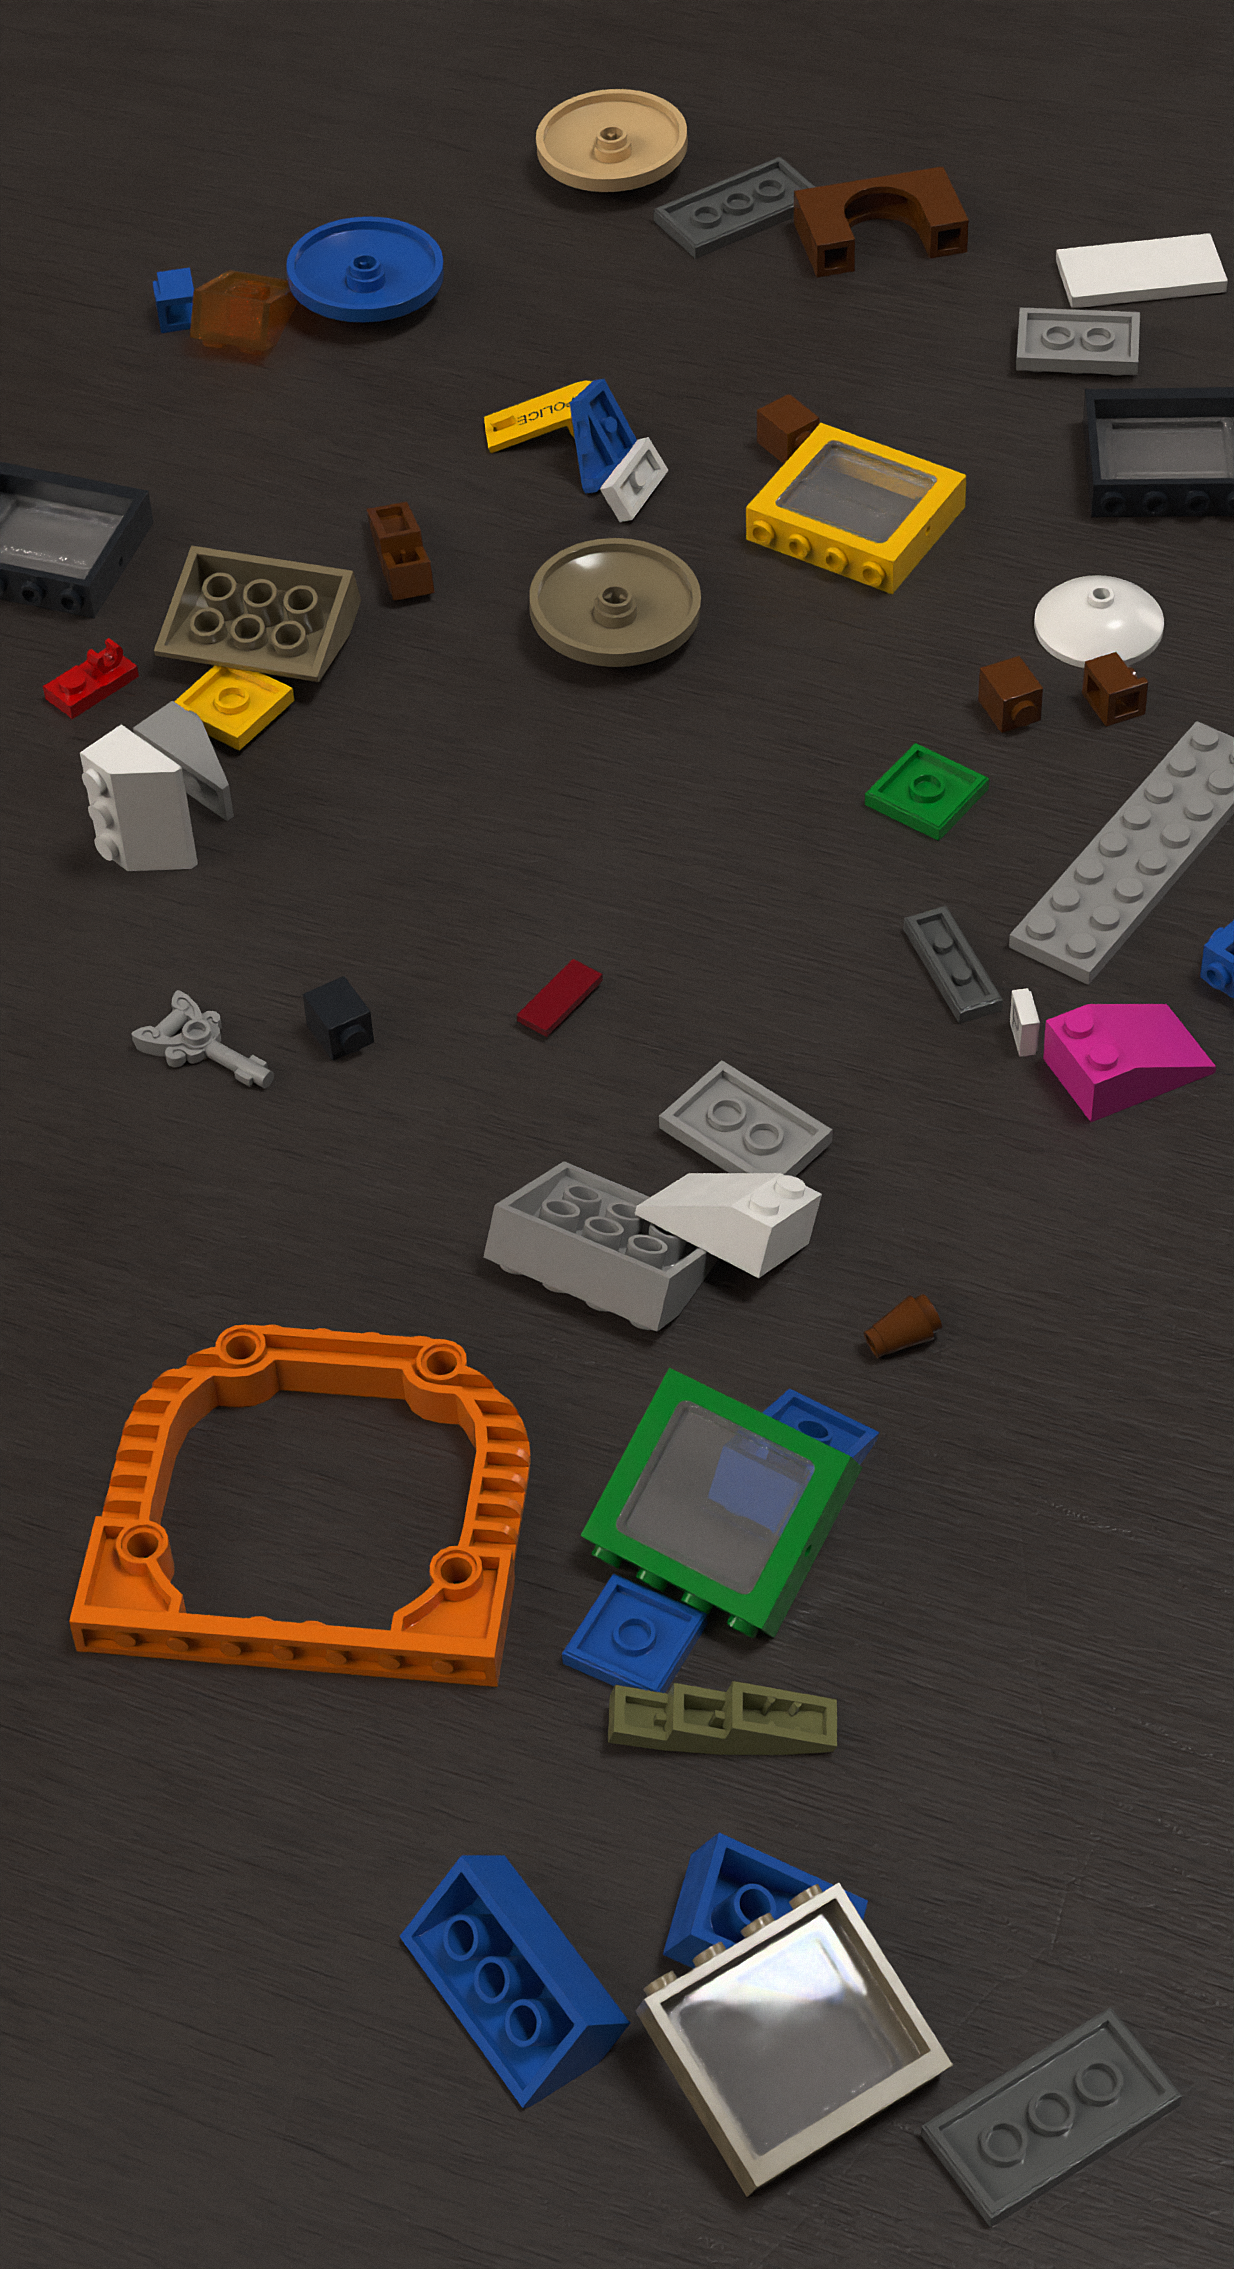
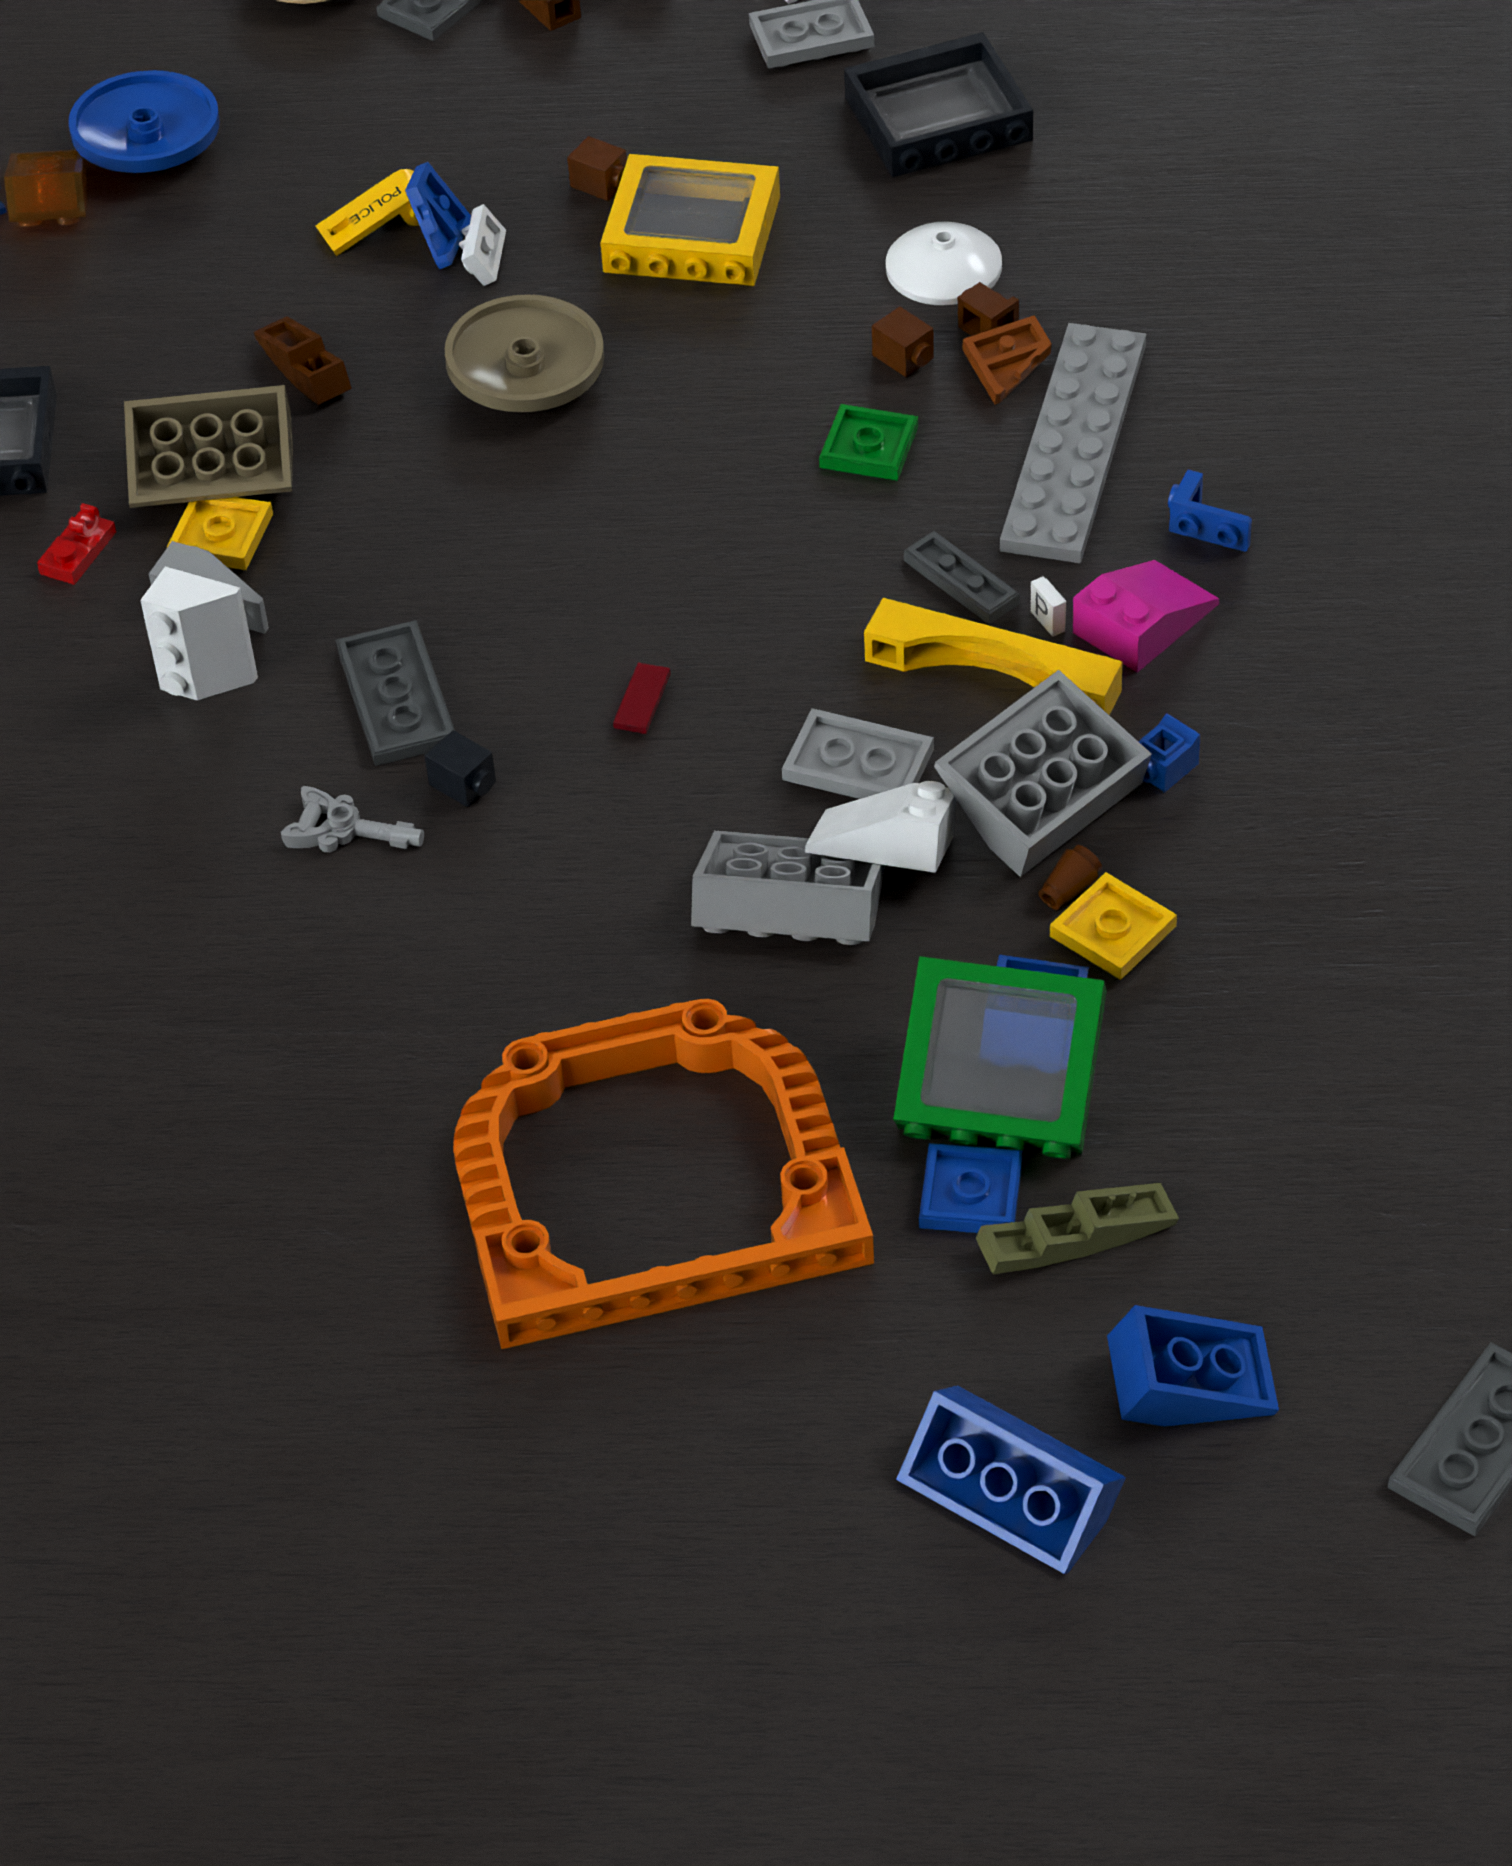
camera: 20 degrees left, 0 degrees up
(319, 918) = (395, 691): none -> dark grey tile
(791, 2036) = (1262, 1441): clear piece -> none
(868, 1016) = (916, 638): none -> yellow arch
(920, 1202) = (1042, 771): none -> light grey slope
(924, 1395) = (1113, 925): none -> yellow plate
(1071, 1222) = (1169, 761): none -> blue window
(1114, 738) = (1007, 355): none -> dark orange wing

